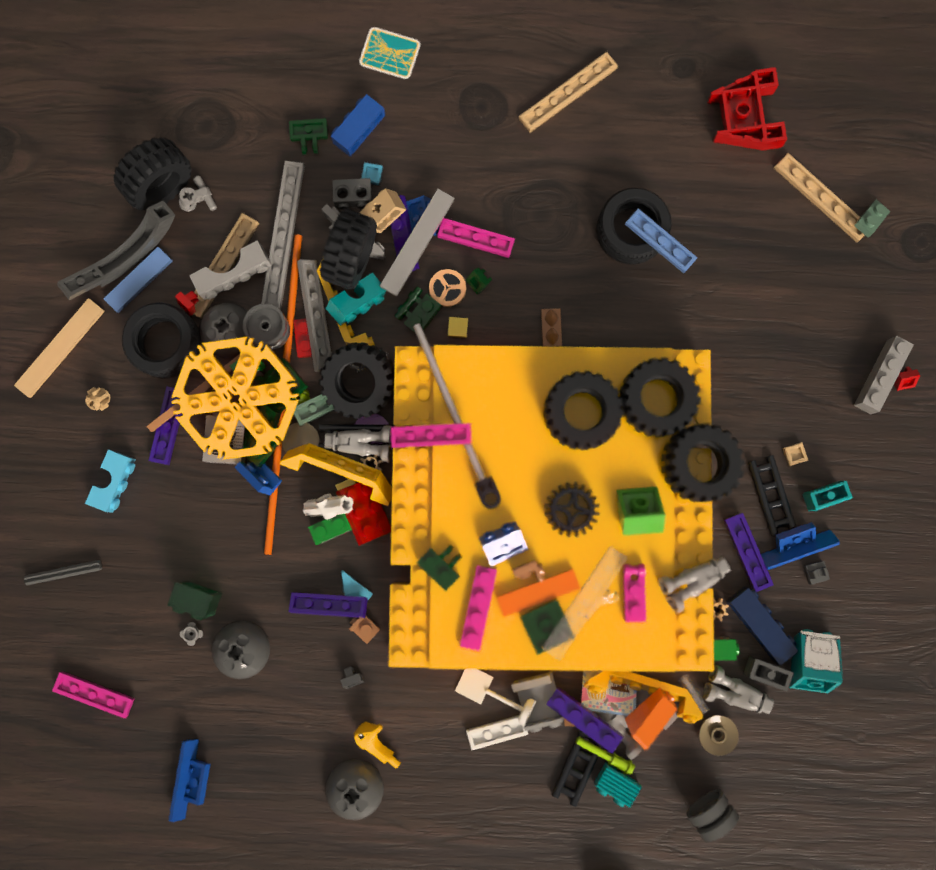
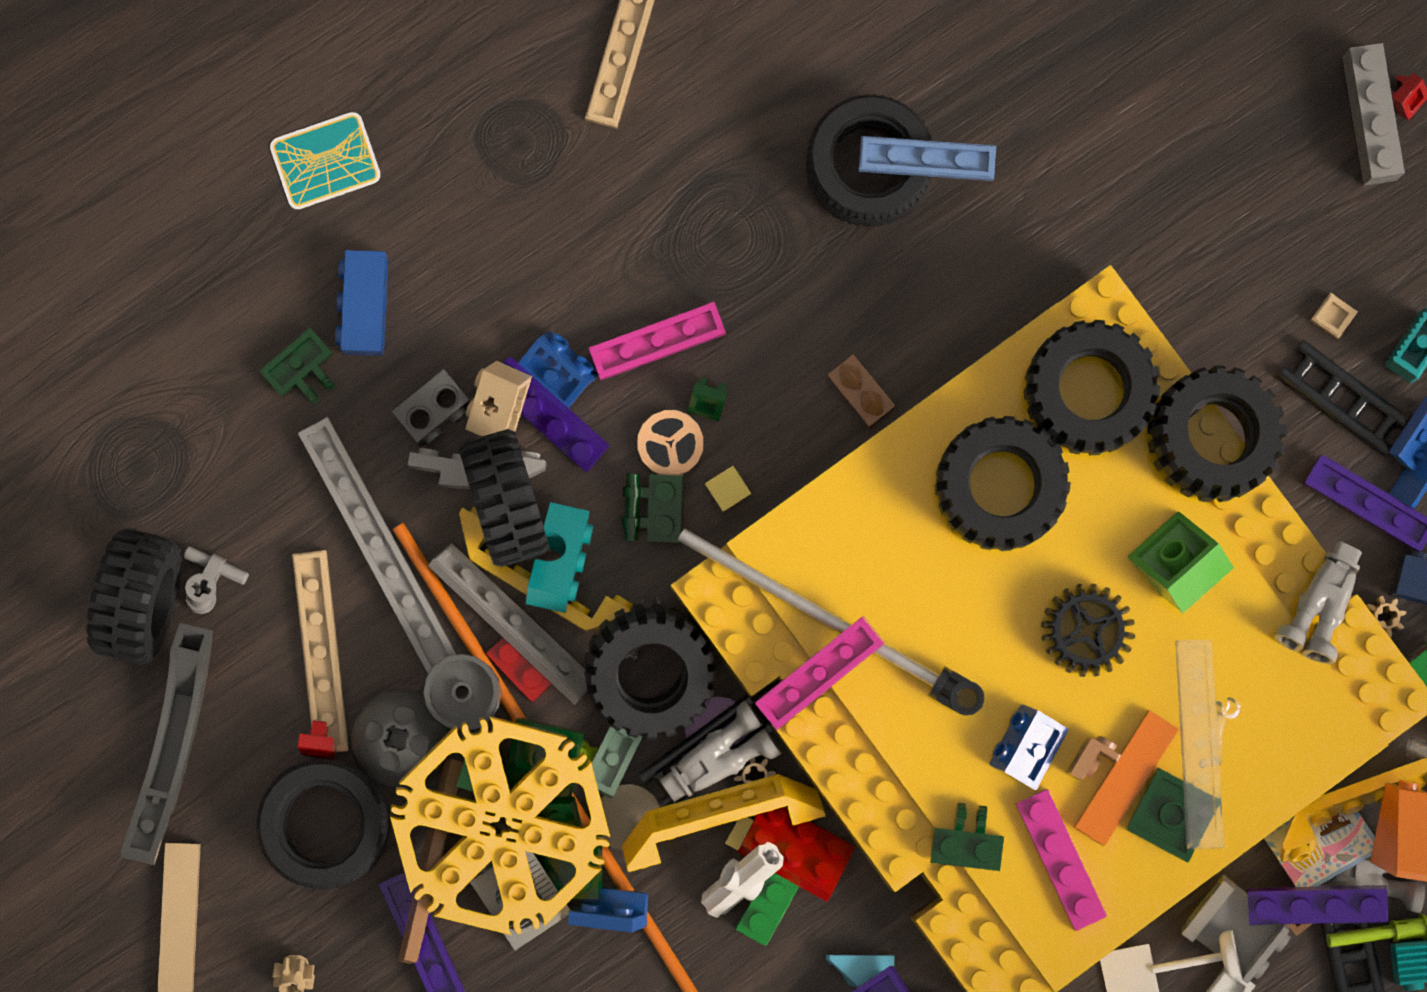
camera: 40 degrees left, 0 degrees up
(137, 280) = (215, 763): medium blue tile -> none
(252, 261) = (367, 612): light grey arch -> none
(373, 172) = (435, 357): medium azure tile -> none
(417, 242) = (583, 412): light grey tile -> none
(634, 593) = (1256, 680): dark pink plate -> none

